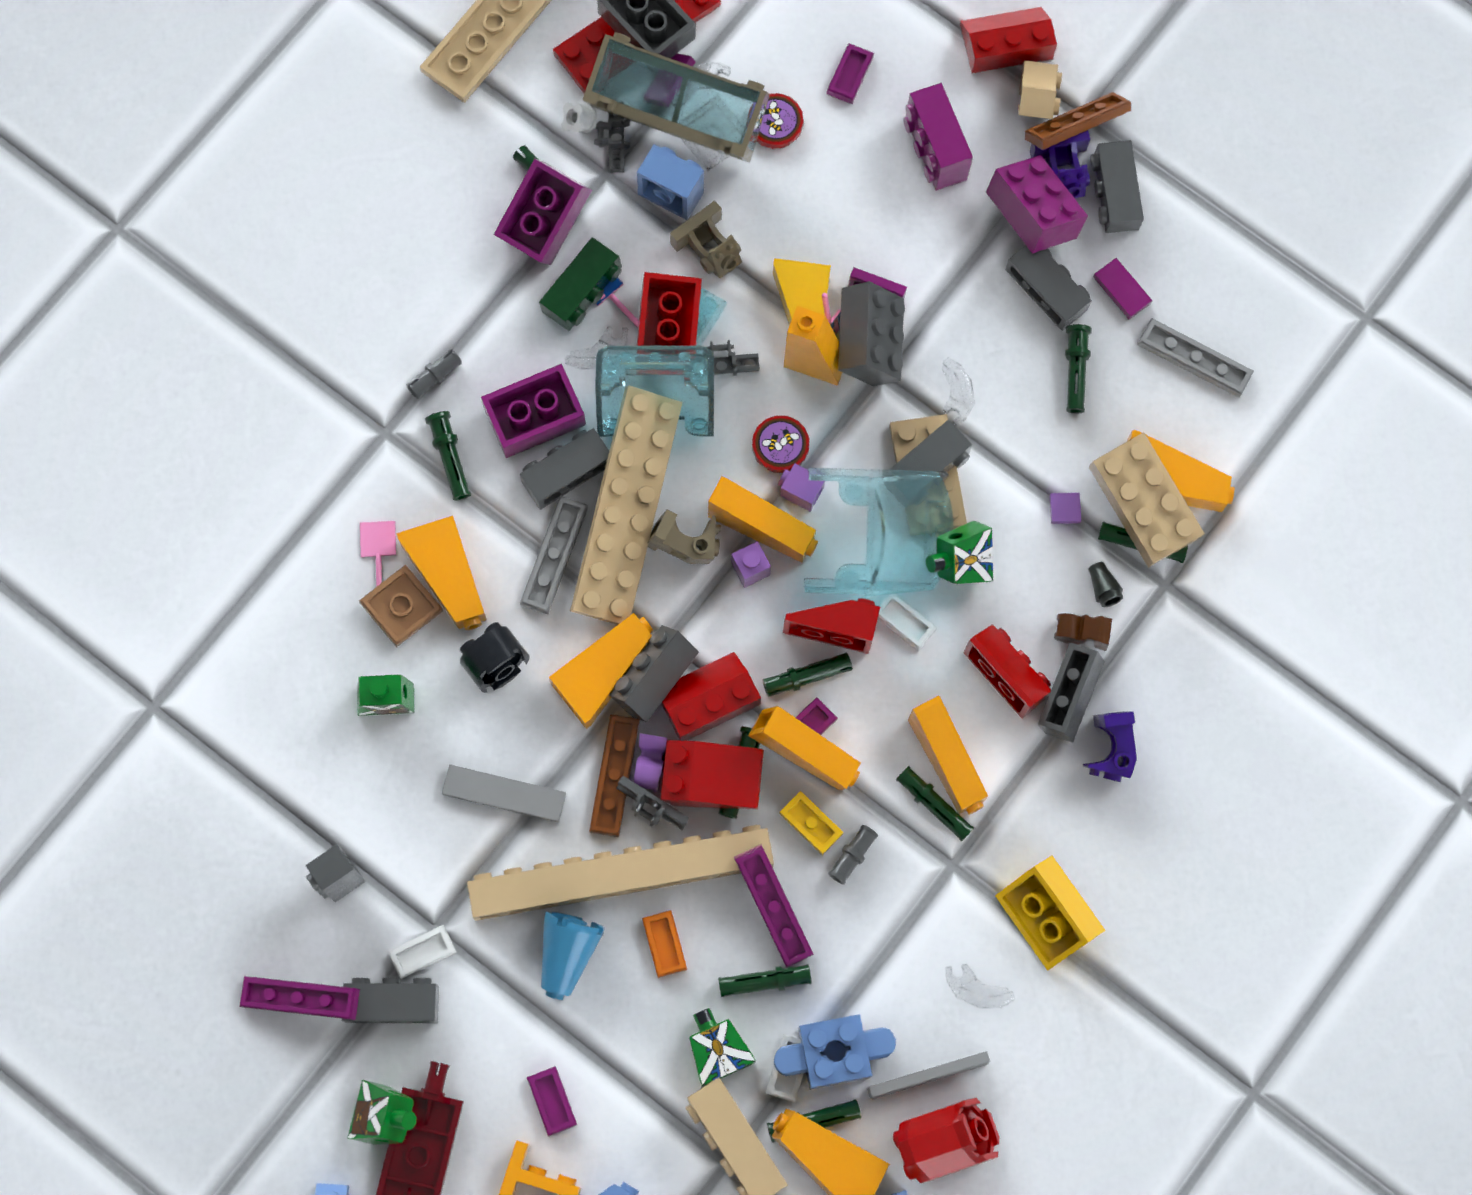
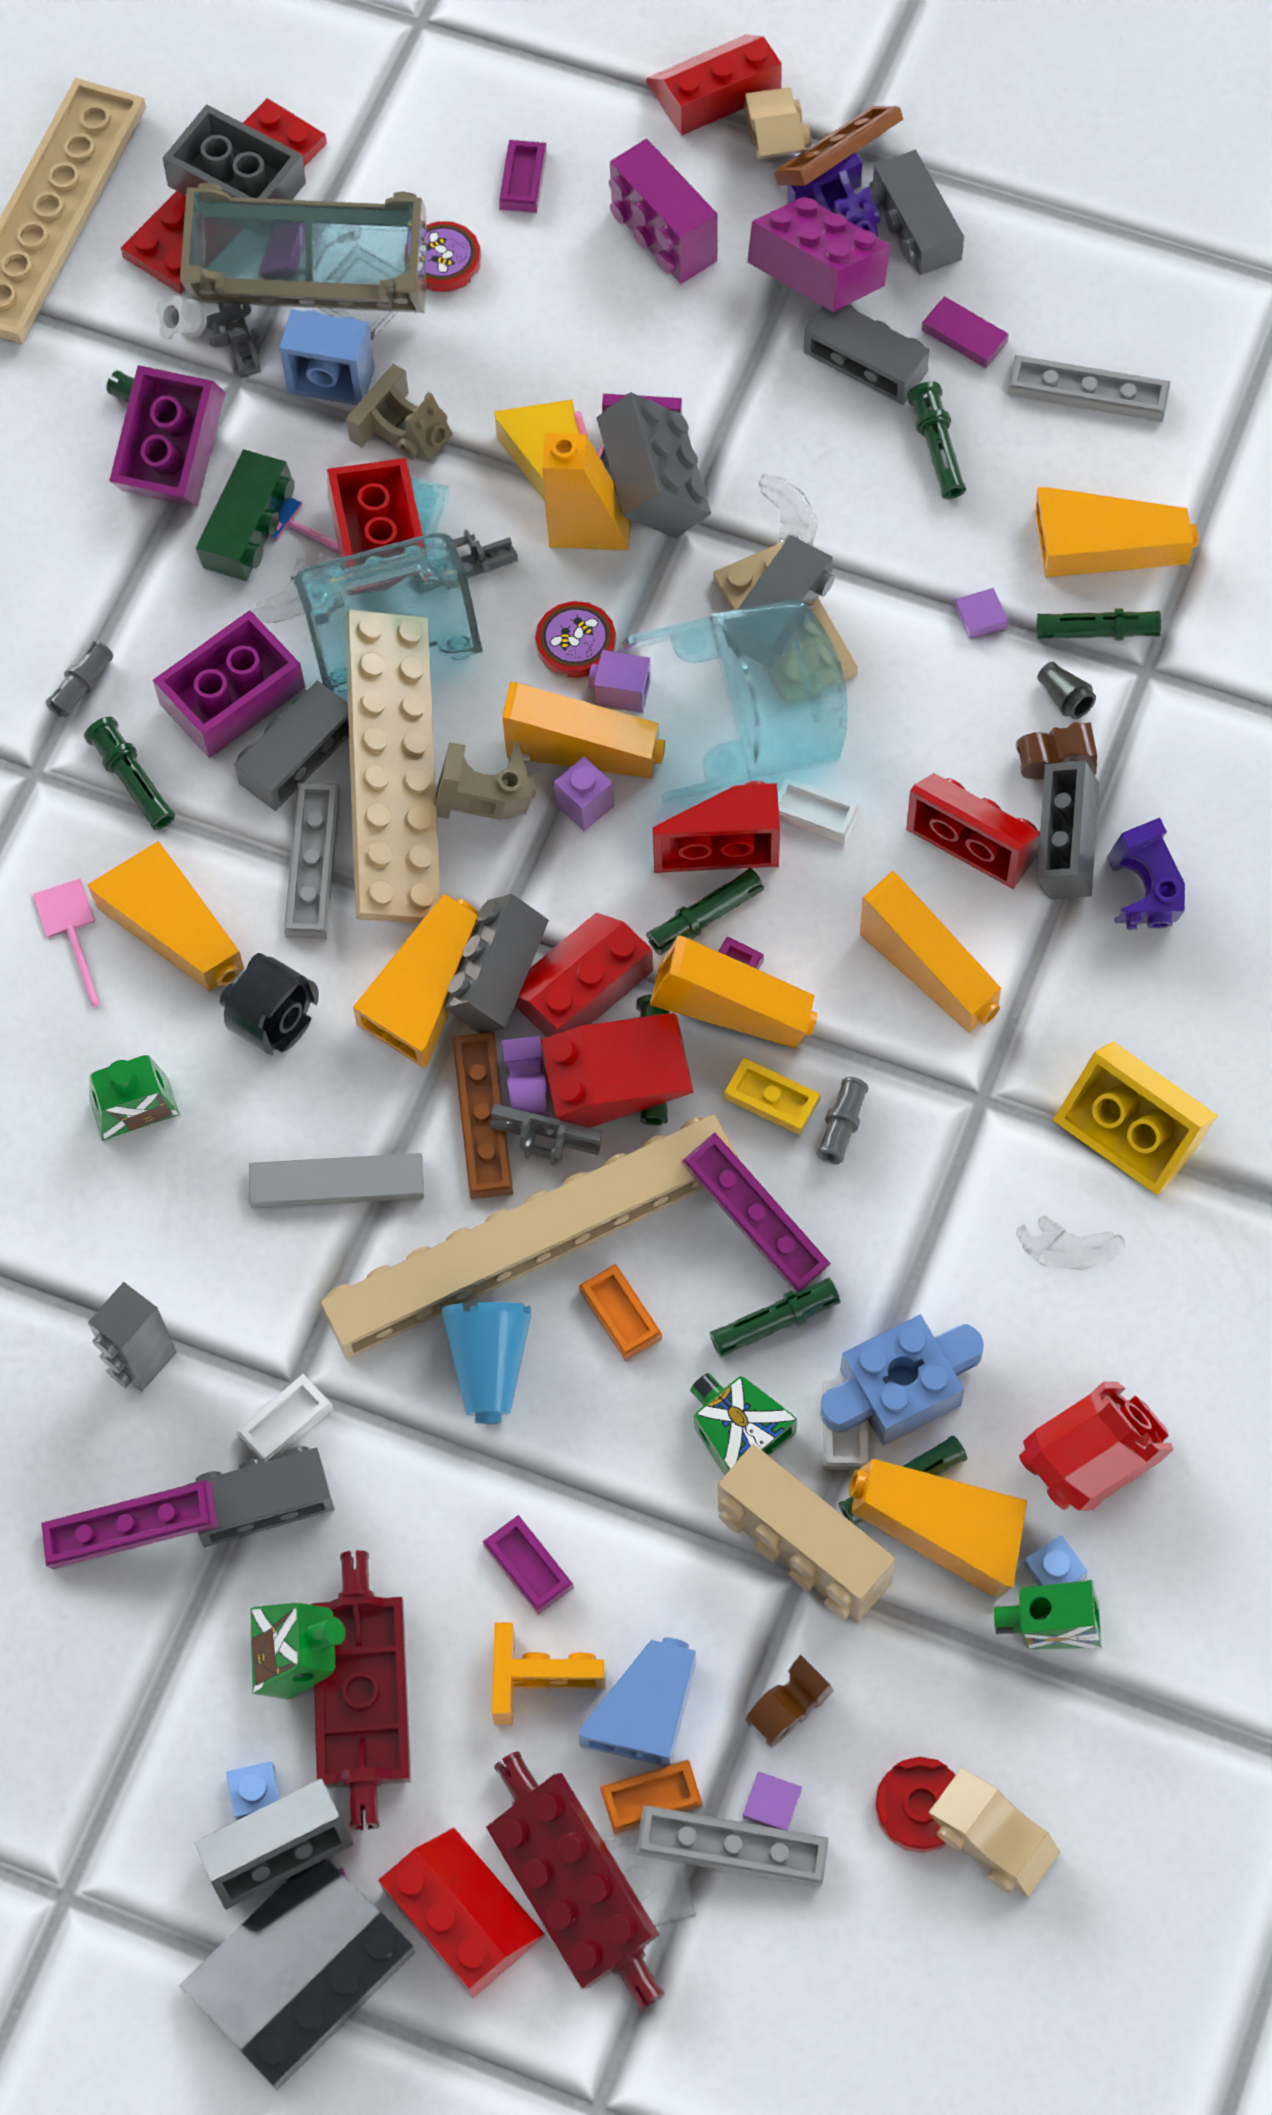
camera: 10 degrees left, 10 degrees down
(401, 606) = (120, 981): medium nougat tile -> none
(928, 1075) = (1040, 1374): light grey tile -> none
(934, 803) = (936, 1026): dark green pin -> none
(964, 554) = (867, 696): torso -> none
(1146, 499) = (1085, 561): tan brick -> none

